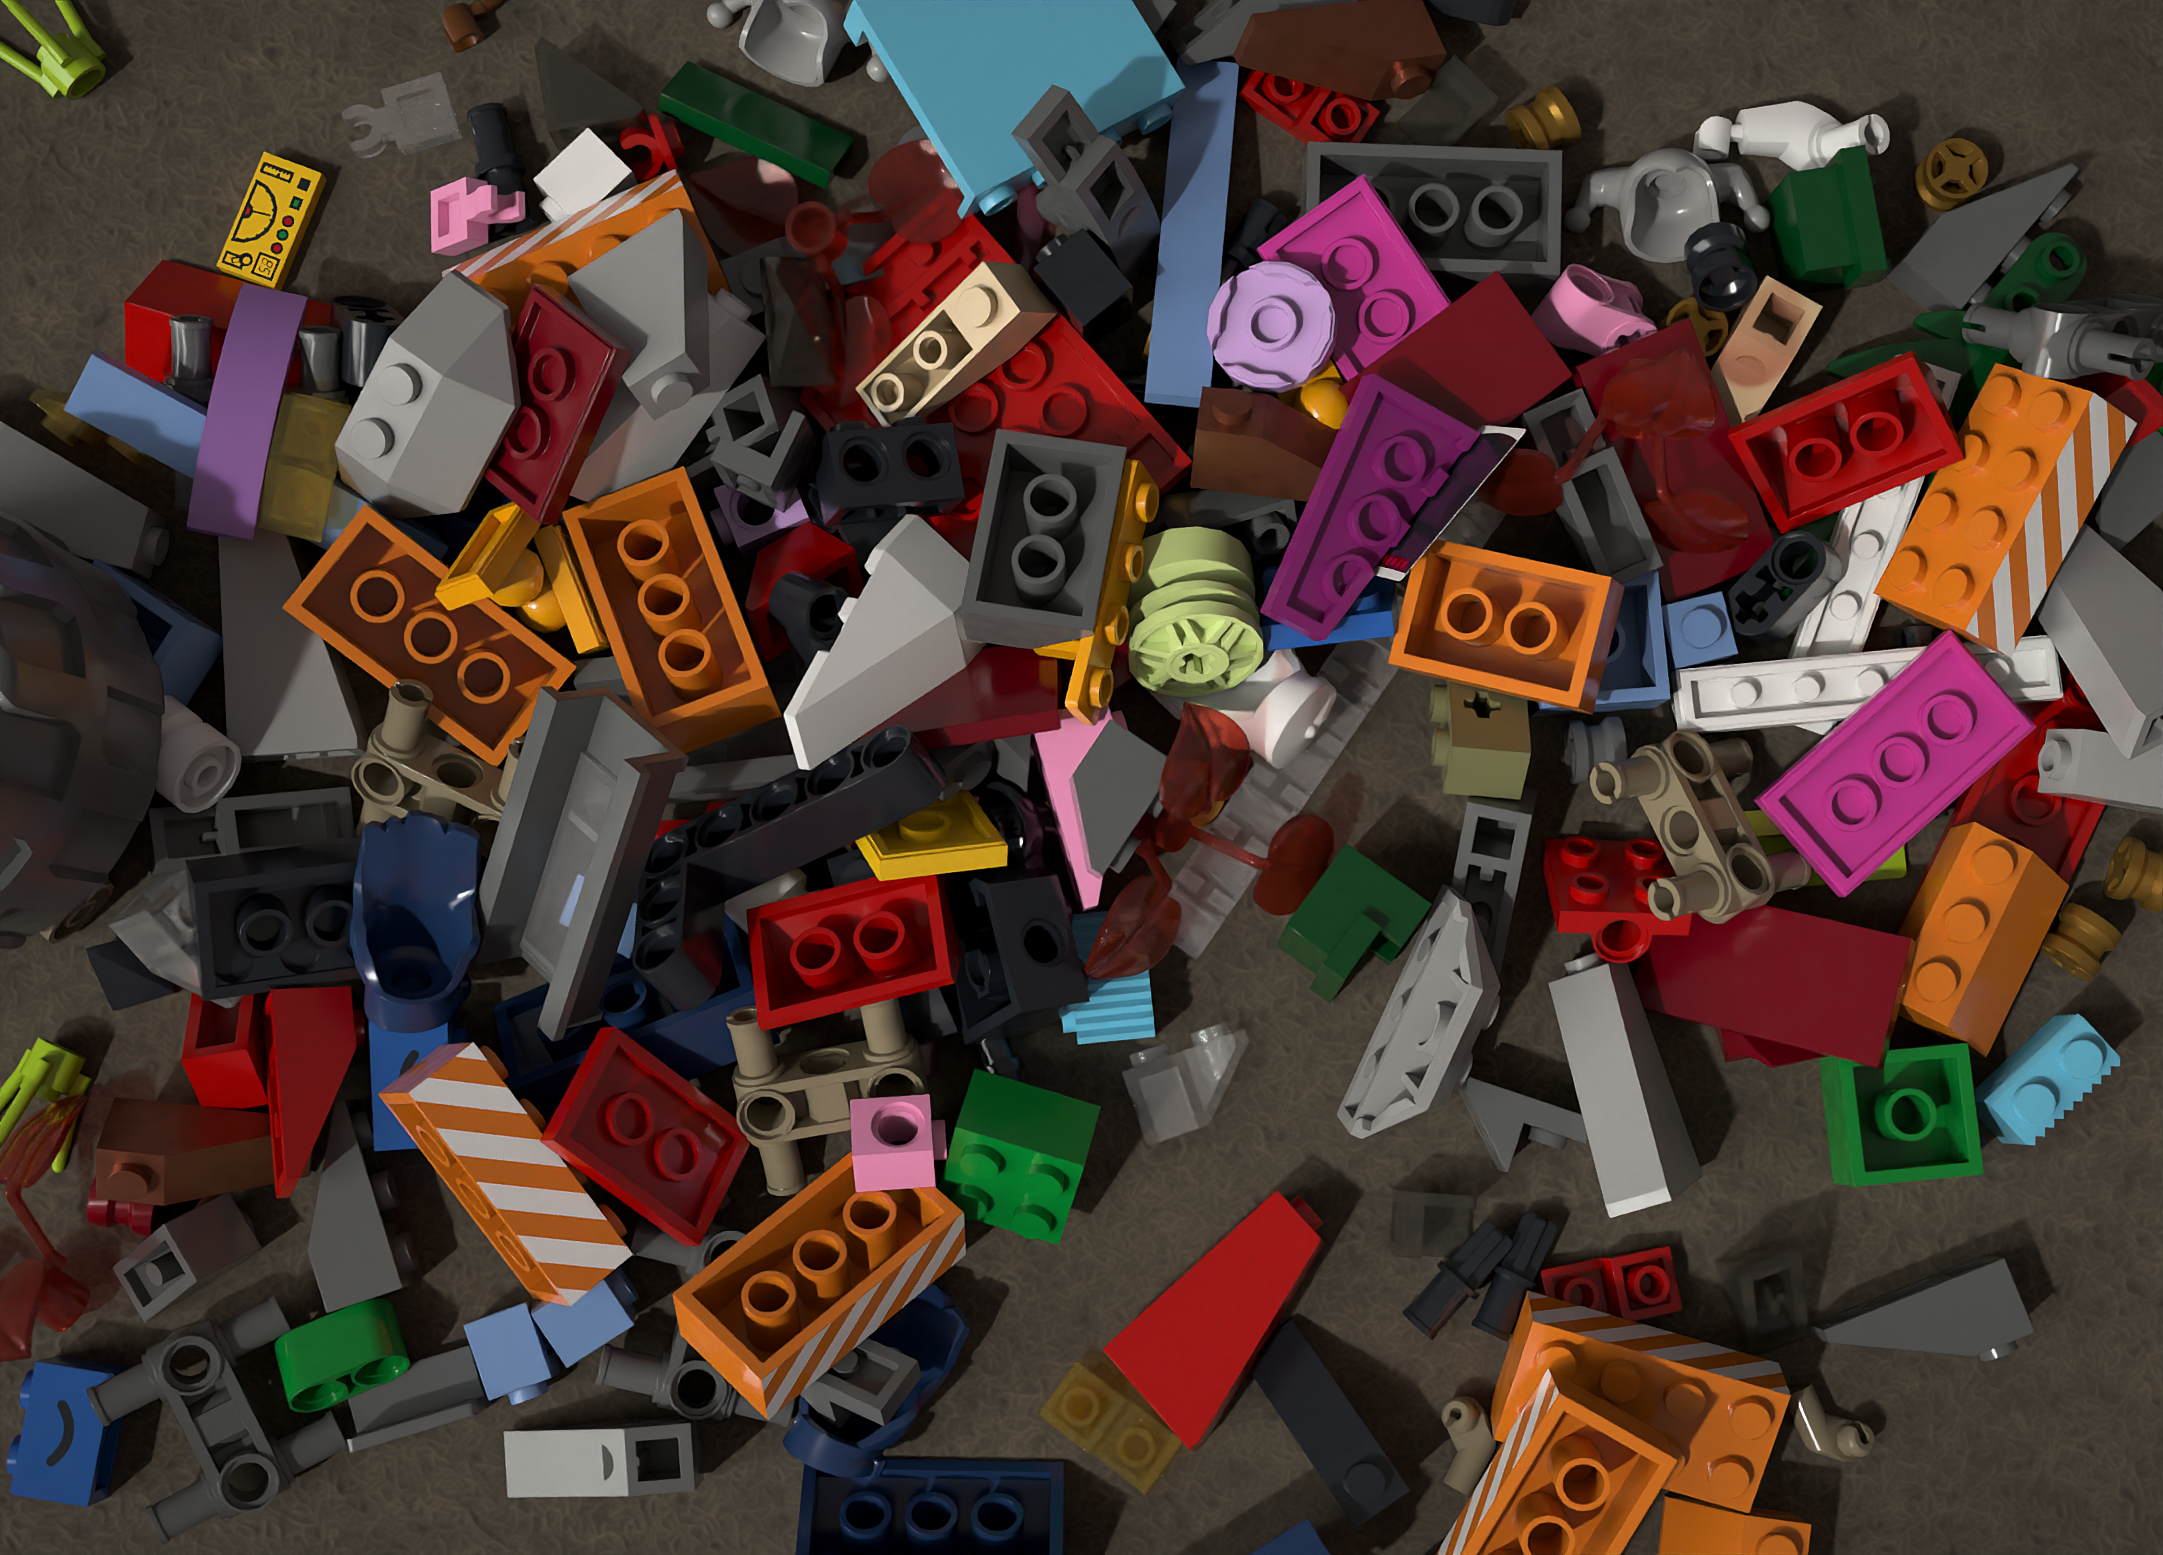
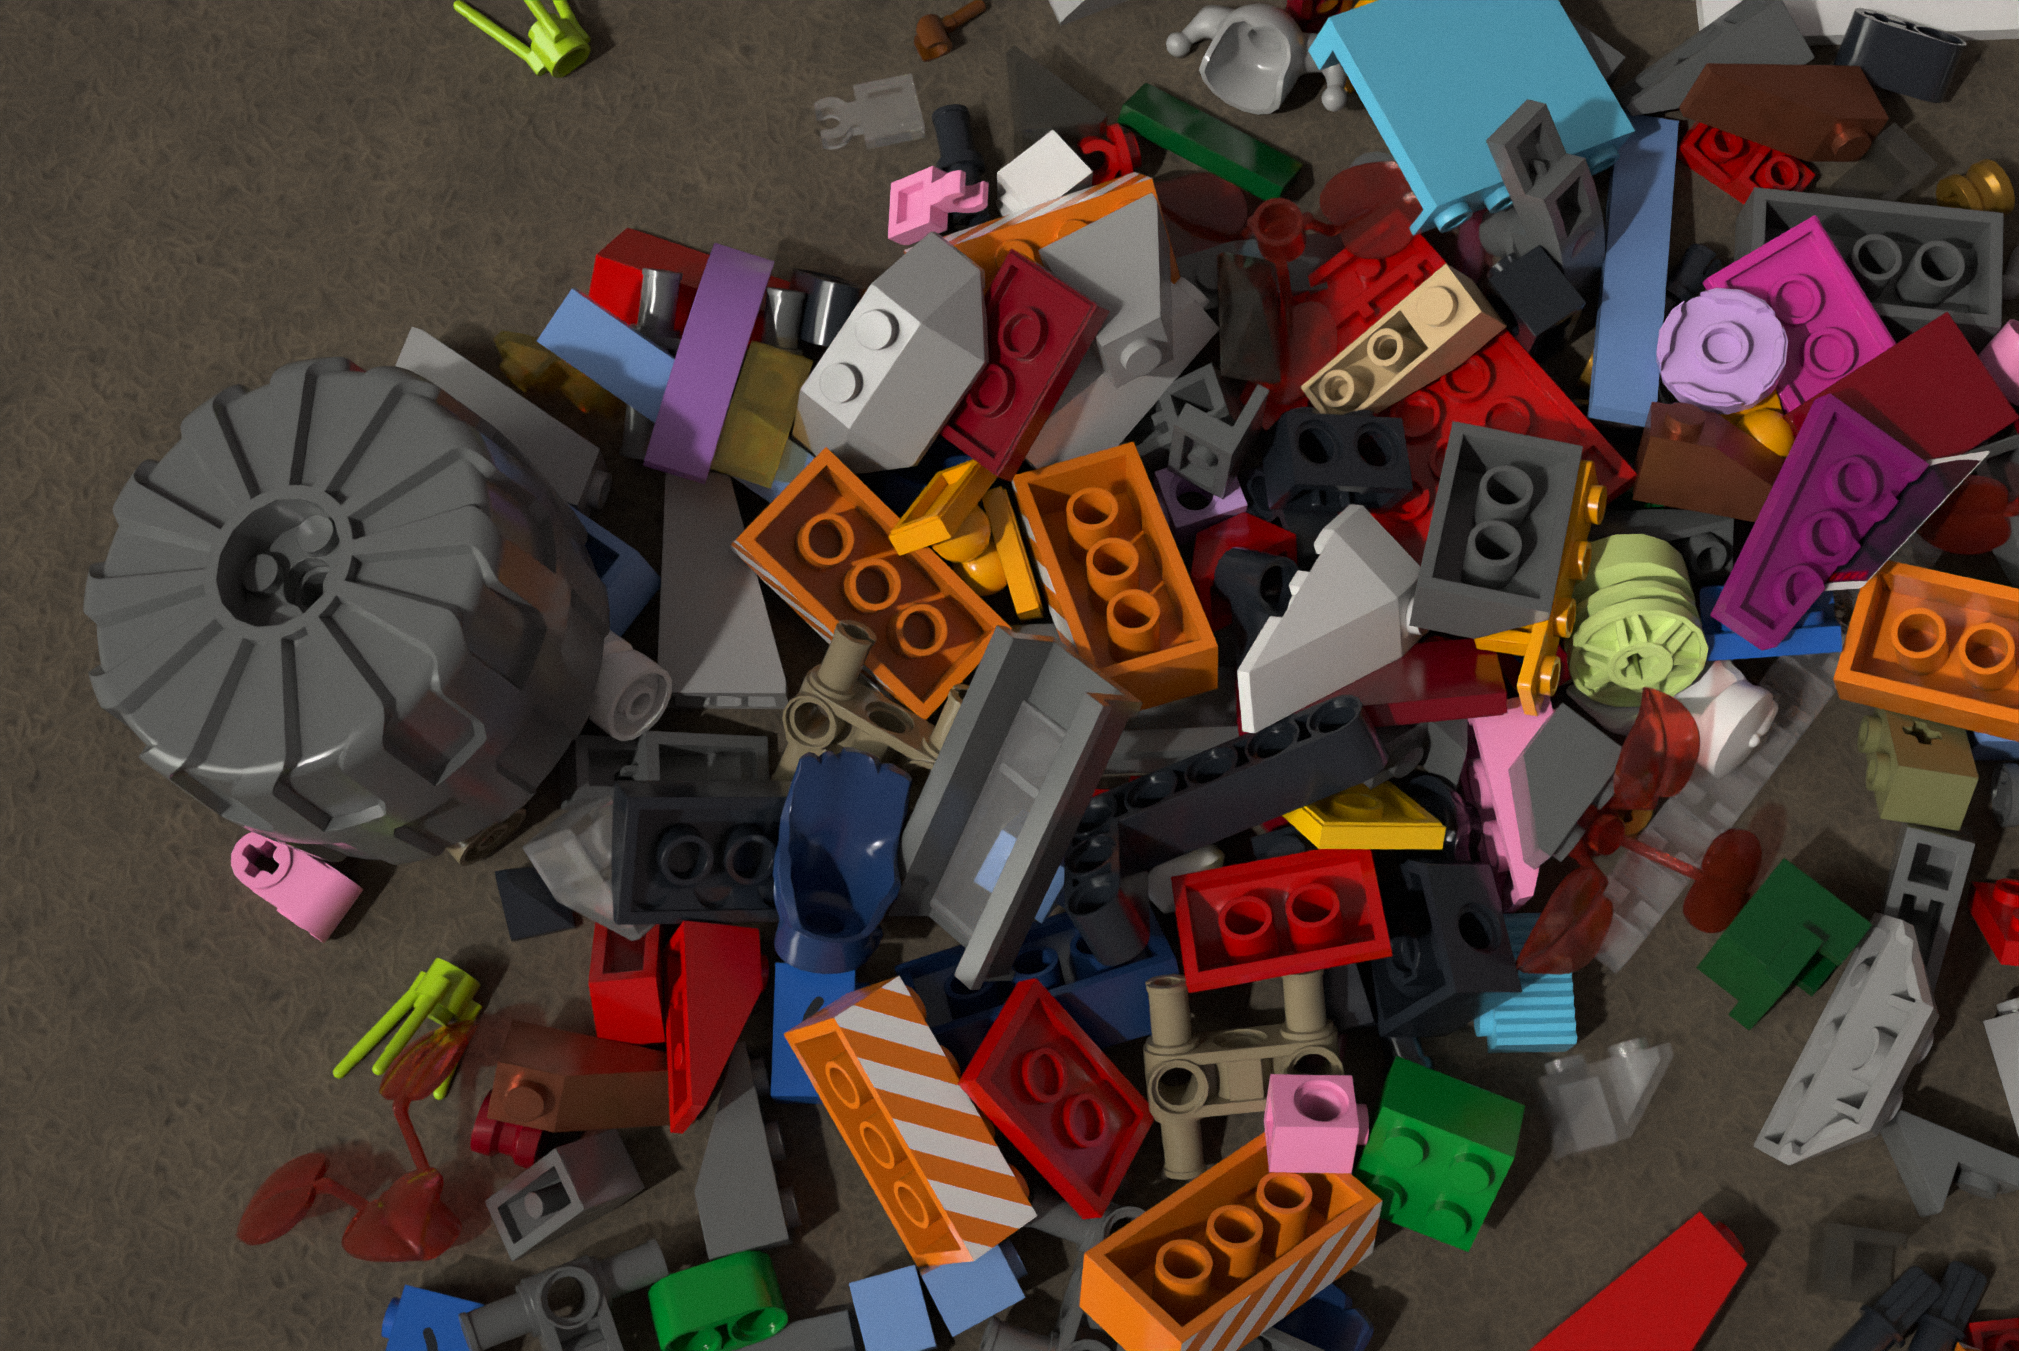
camera: 10 degrees right, 10 degrees down
(271, 222) = (736, 197): yellow tile -> none

